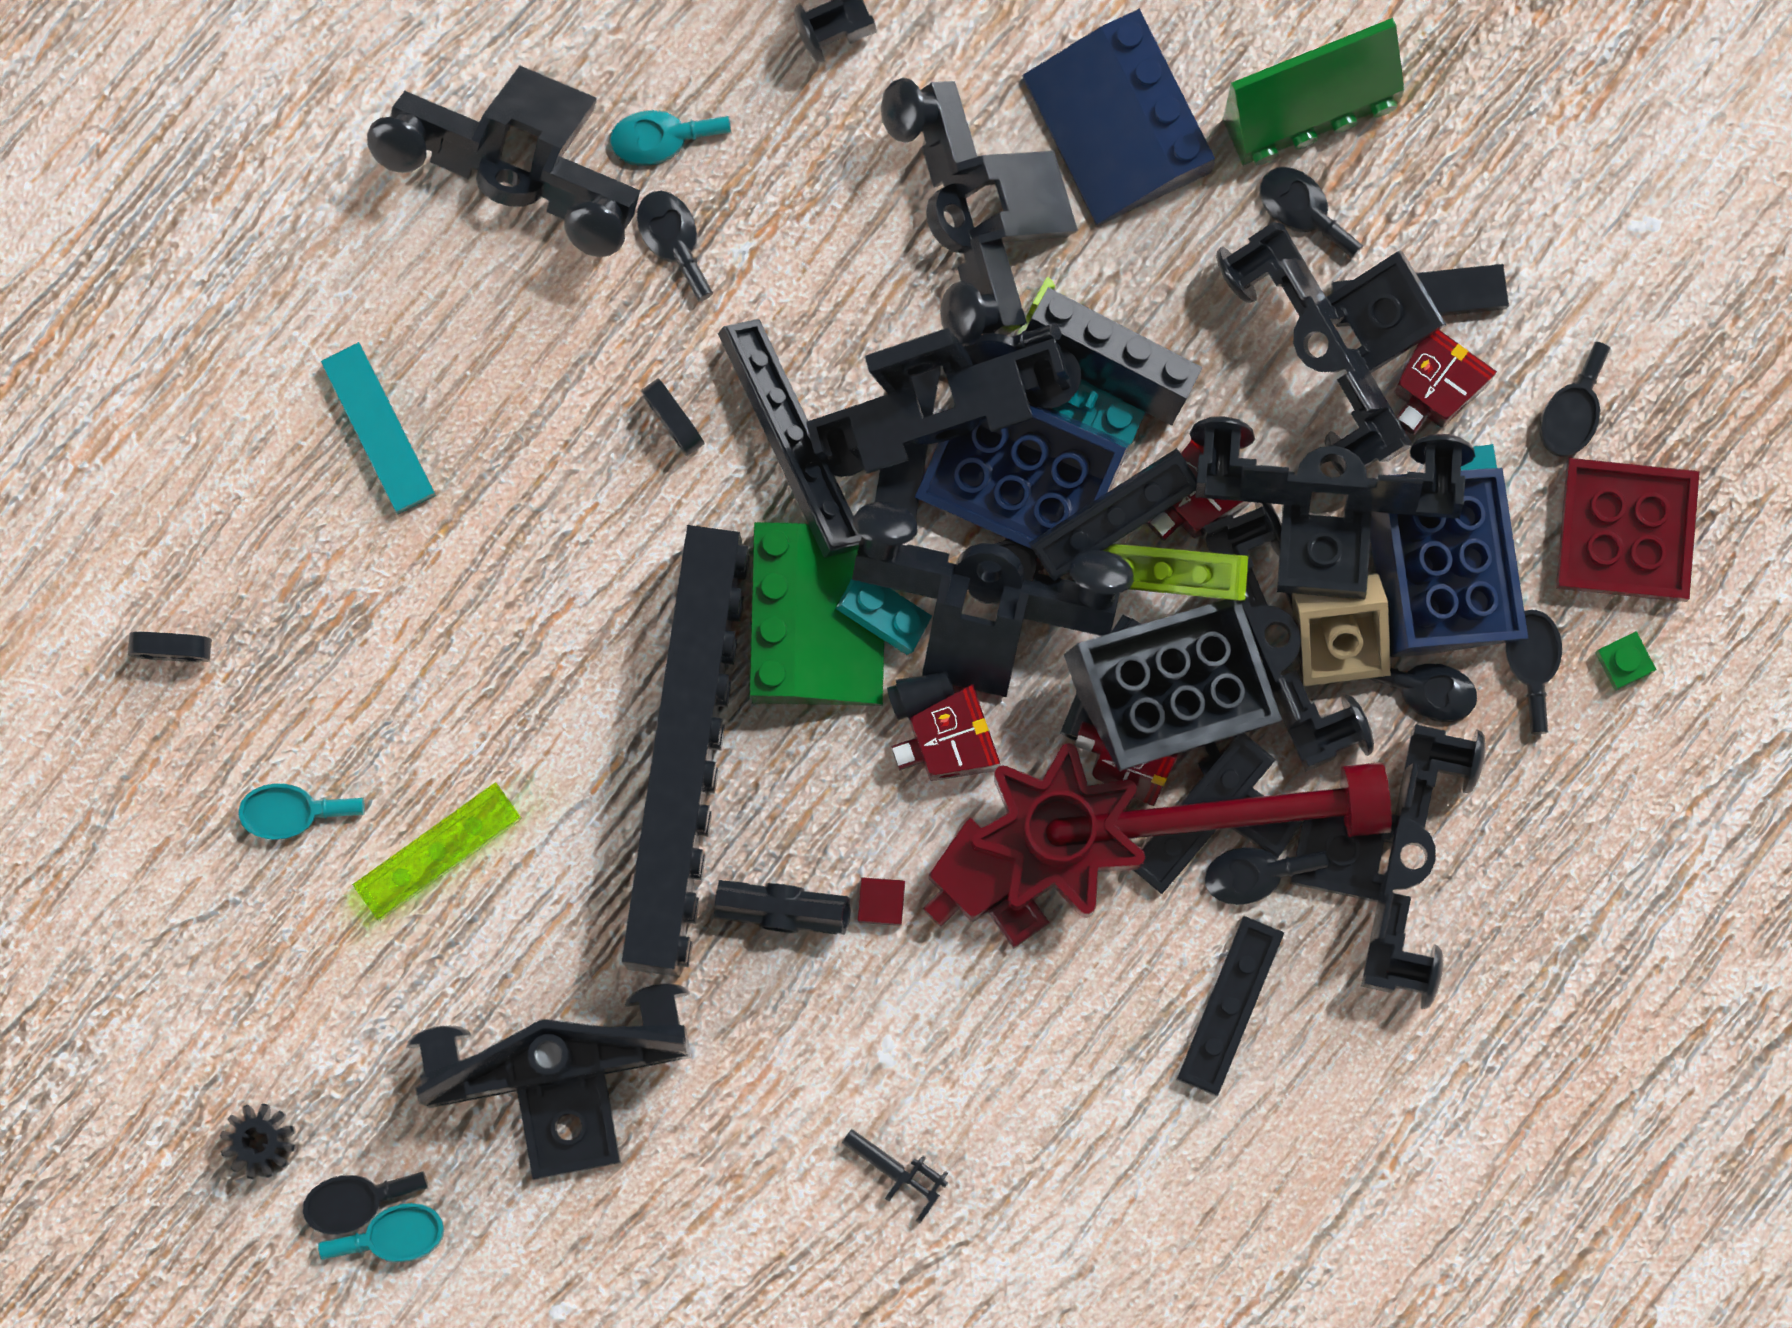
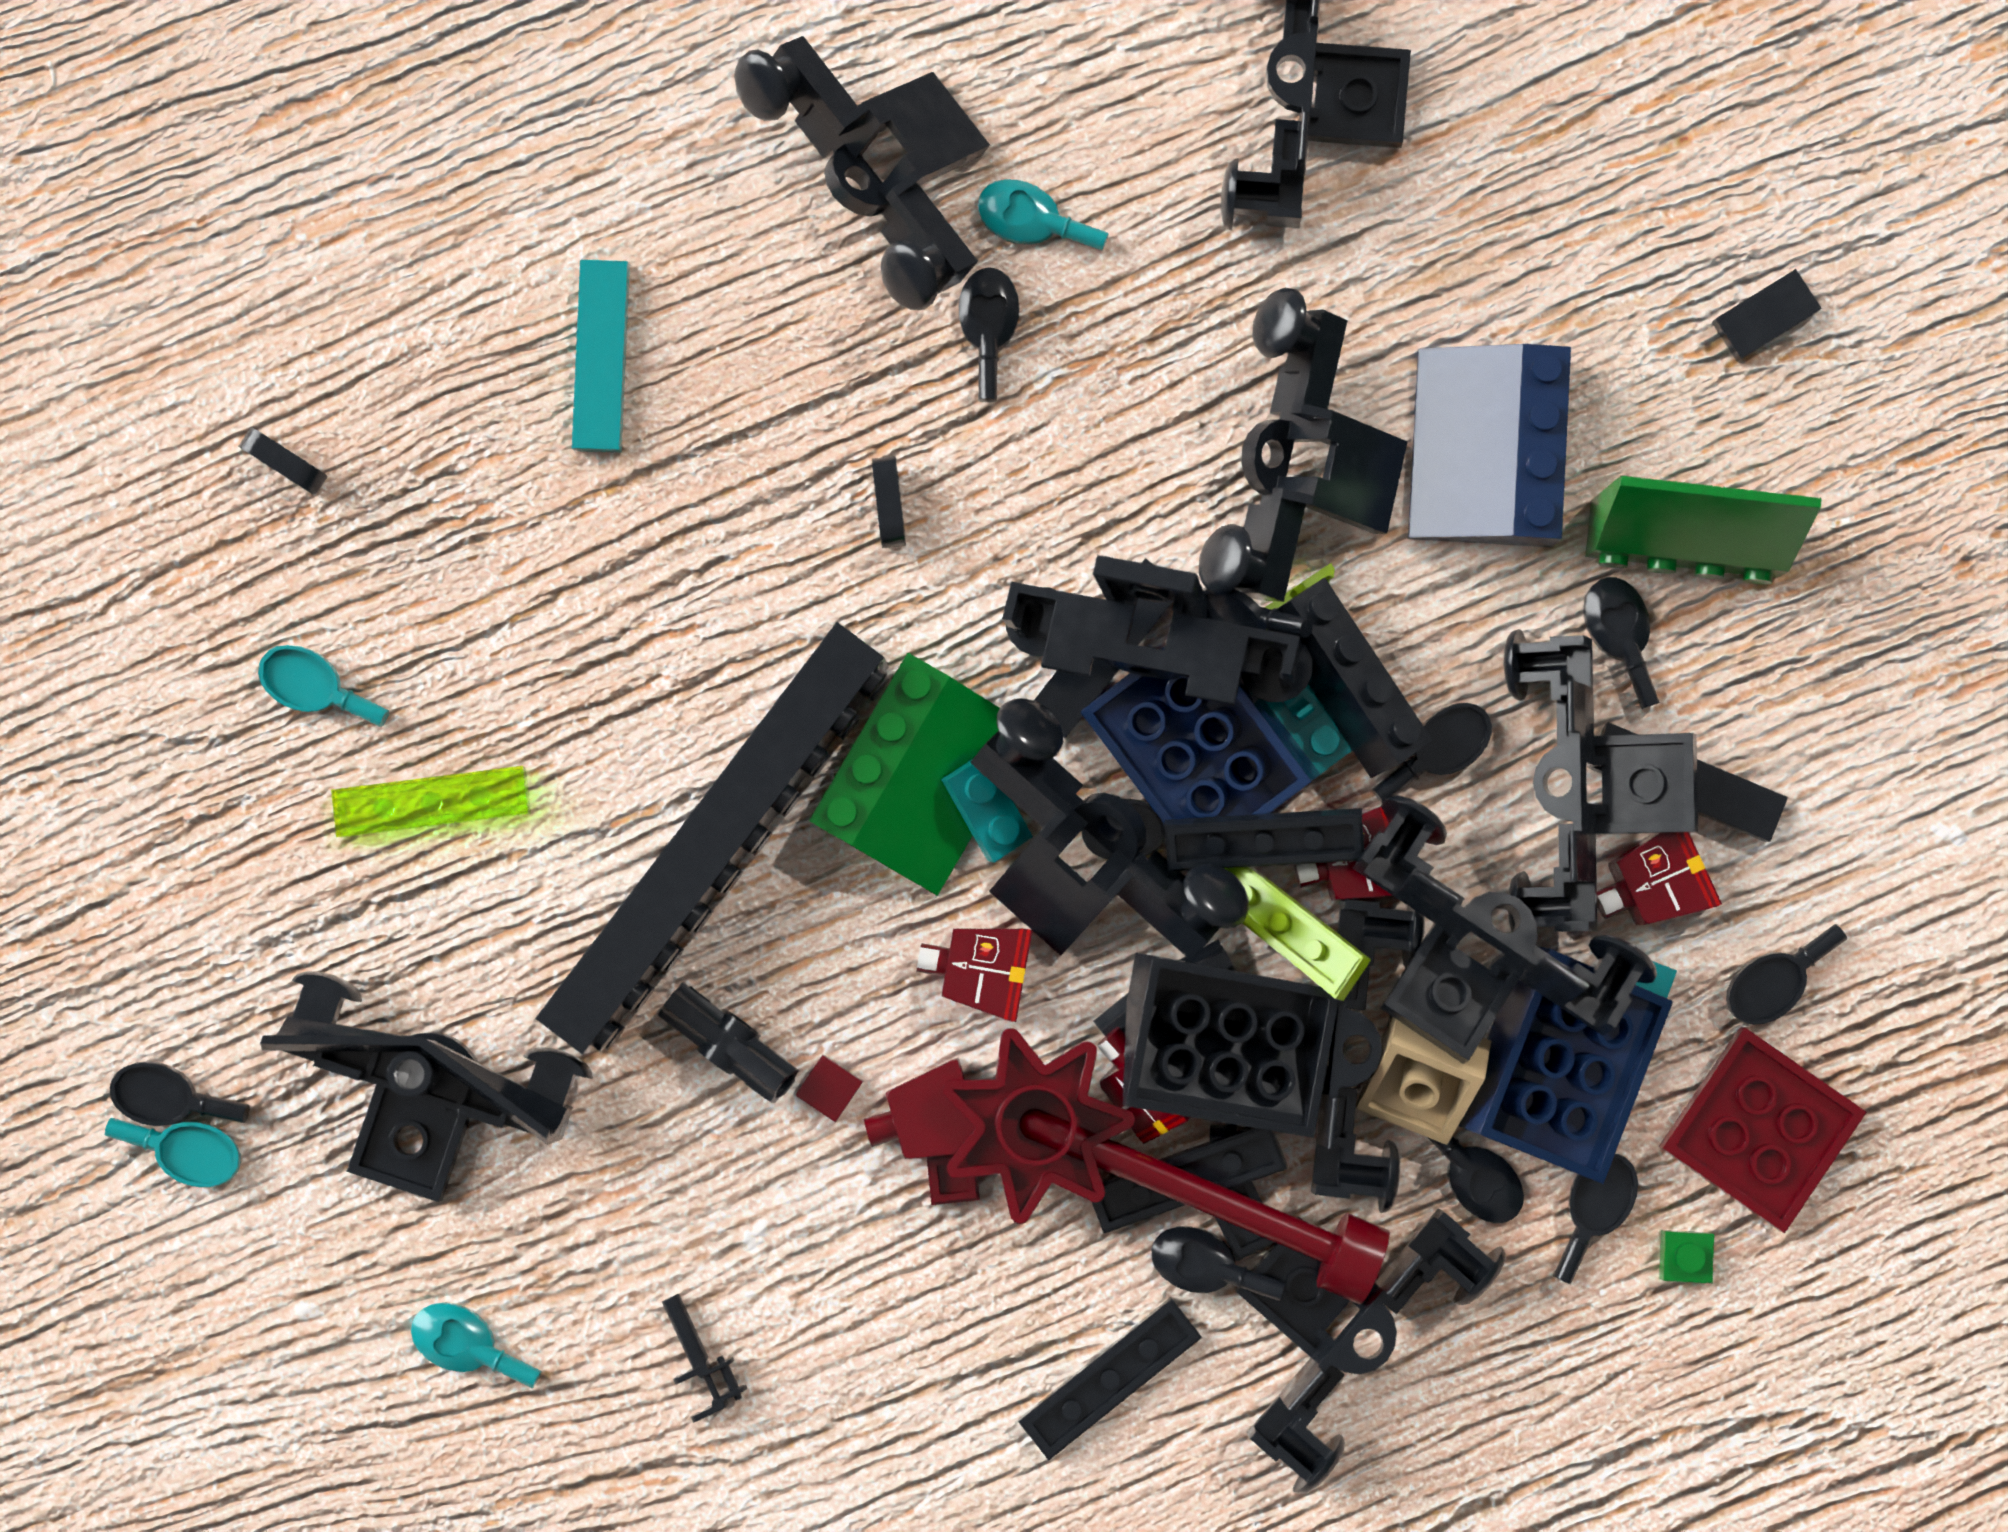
camera: 30 degrees right, 5 degrees up
(263, 1125) = (97, 1005): black gear -> none
(701, 1264) = (464, 1342): none -> teal piece
(789, 437) = (991, 569): black tile -> none
(918, 693) = (976, 908): black cone -> none
(1224, 357) = (1458, 737): none -> black piece

